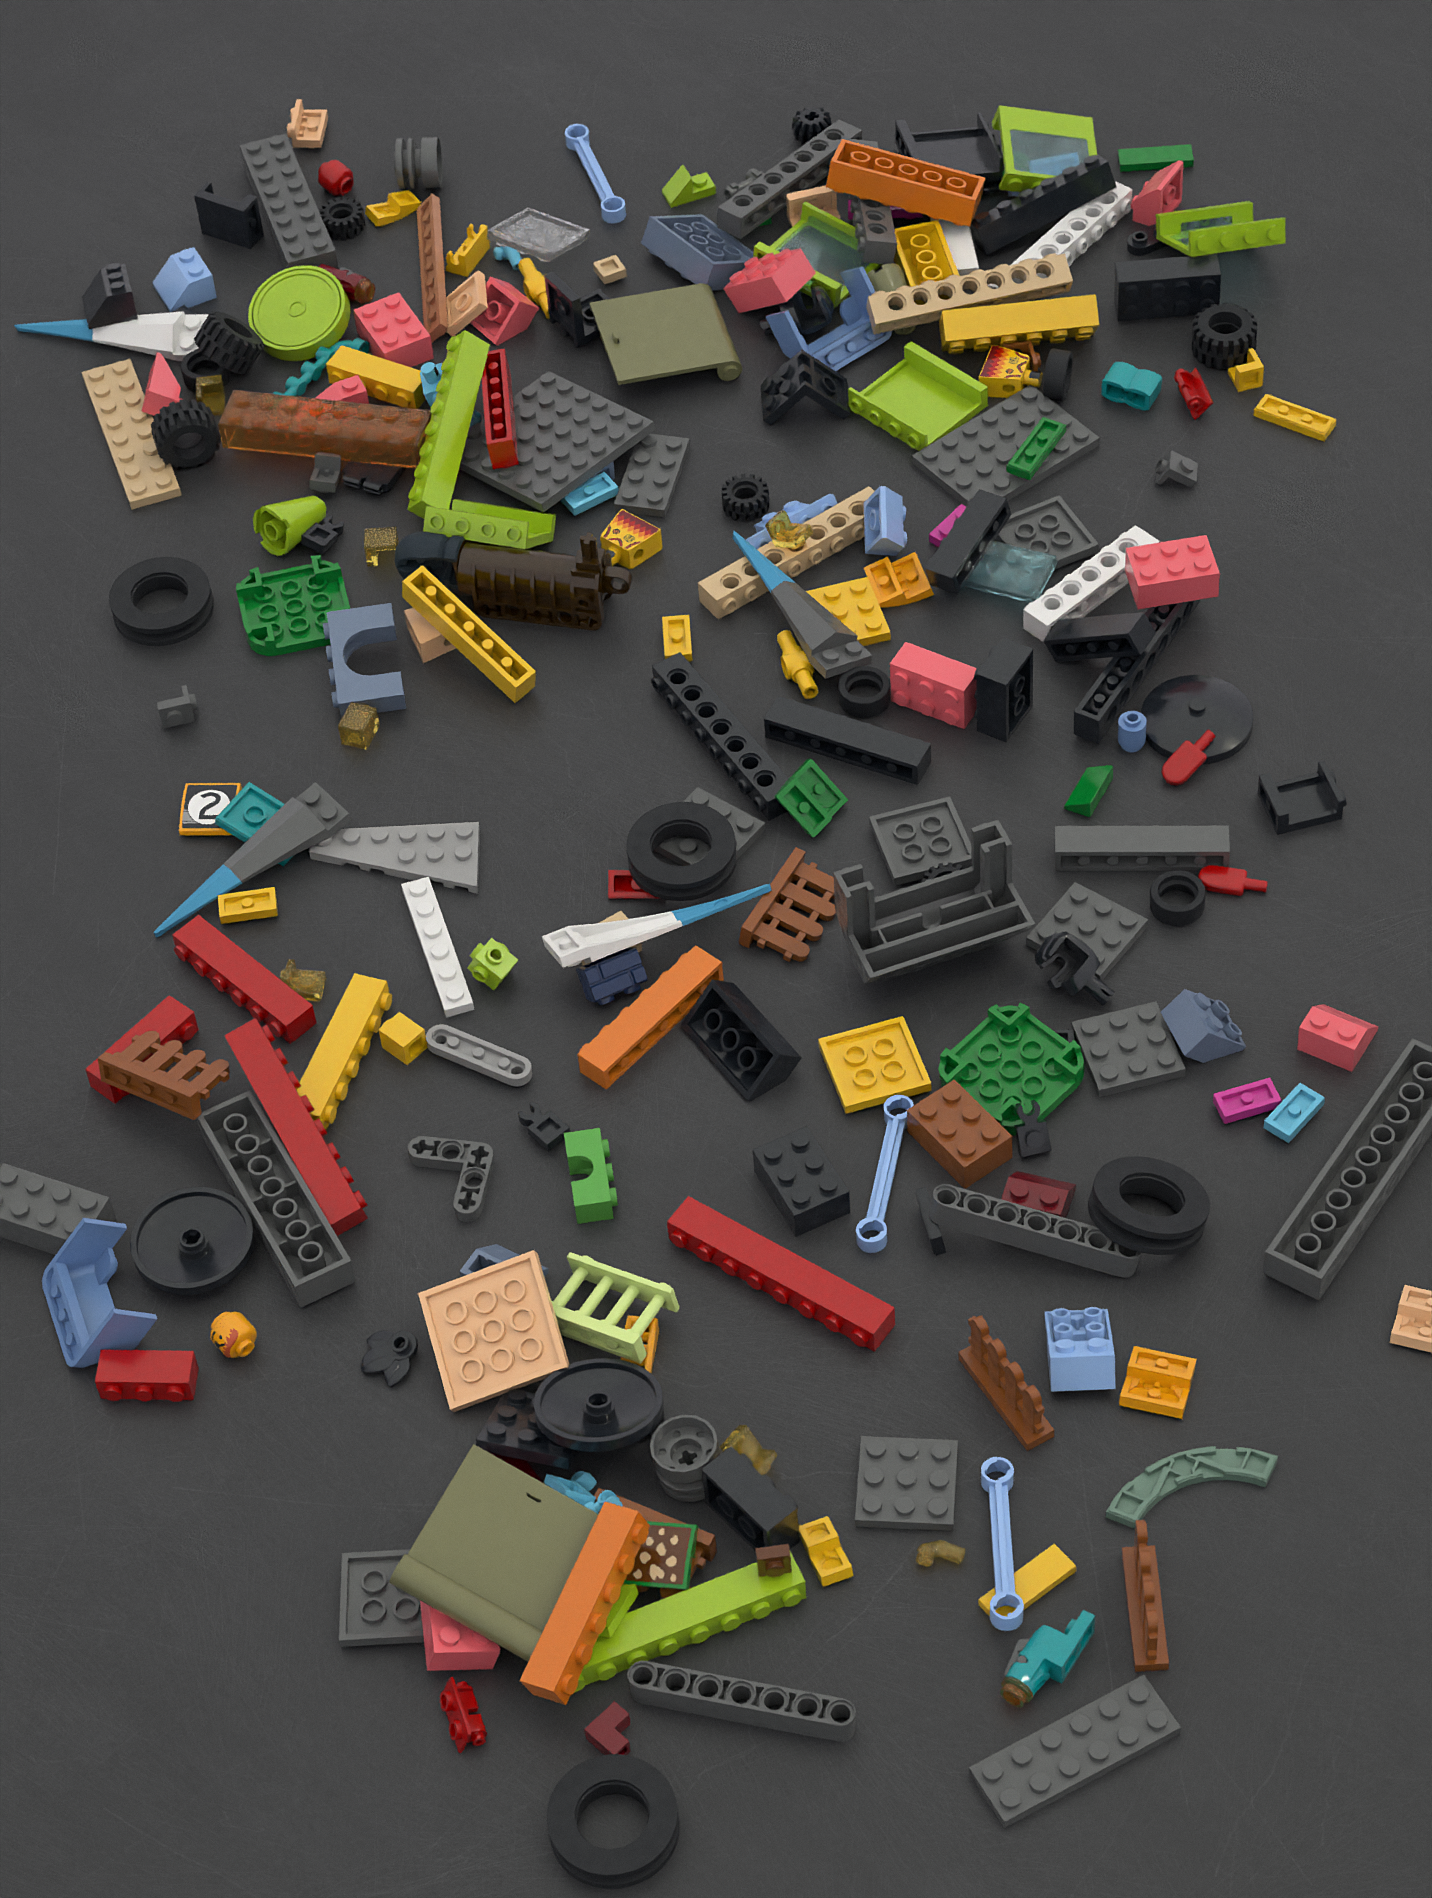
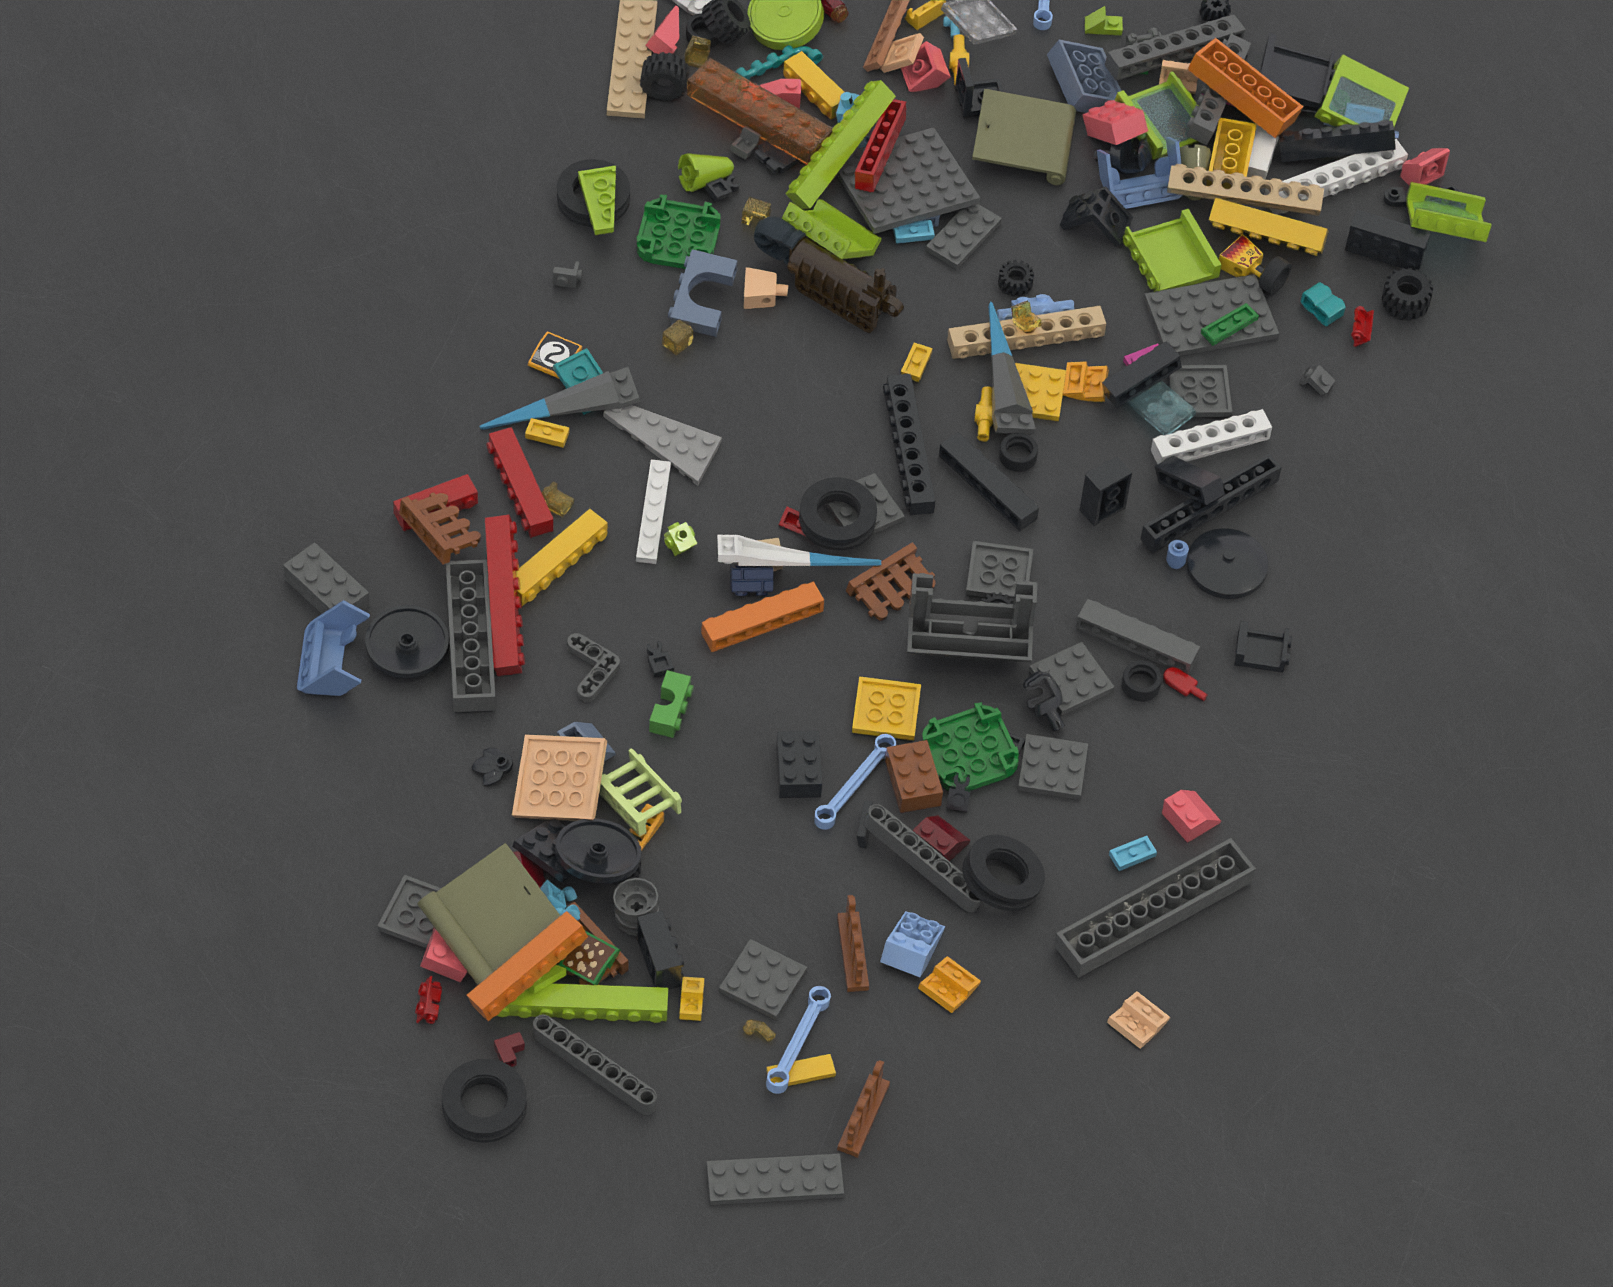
camera: 15 degrees right, 5 degrees up
(147, 1375) = (341, 715): red brick -> none
(174, 599) = (599, 196): none -> lime wing
(233, 1334) = (404, 711): light orange head -> none
(394, 331) = (842, 55): coral brick -> none
(403, 1038) = (600, 564): yellow brick -> none
(468, 634) = (777, 303): yellow brick -> none
(479, 1055) = (642, 596): light grey plate -> none
(609, 269) = (1015, 66): tan plate -> none
(630, 540) = (920, 278): yellow torso -> none
(740, 1040) = (810, 655): black slope -> none
(745, 1442) = (677, 918): clear yellow bracket -> none
(773, 1560) = (653, 990): reddish brown plate -> none
(781, 1274) = (755, 817): red brick -> none
(811, 797) = (941, 512): green slope -> none
(884, 523) = (1094, 338): light blue slope -> none
(933, 685) = (1062, 466): coral brick -> none
(1027, 348) = (1265, 249): dark orange bracket -> none
(1045, 1657) = (787, 1117): teal plate -> none
(1090, 790) = (1128, 583): green slope -> none
(1154, 157) = (1443, 134): green tile -> none
(1172, 572) = (1261, 455): coral brick -> none
(1186, 760) = (1202, 589): red piece -> none
(1187, 1469) = (934, 1044): sand green tile -> none
(1202, 1027) = (1107, 773): sand blue slope -> none
(1246, 1100) = (1107, 832): dark pink plate -> none
(1248, 375) = (1408, 328): yellow panel -> none
(1295, 417) = (1422, 374): yellow tile -> none

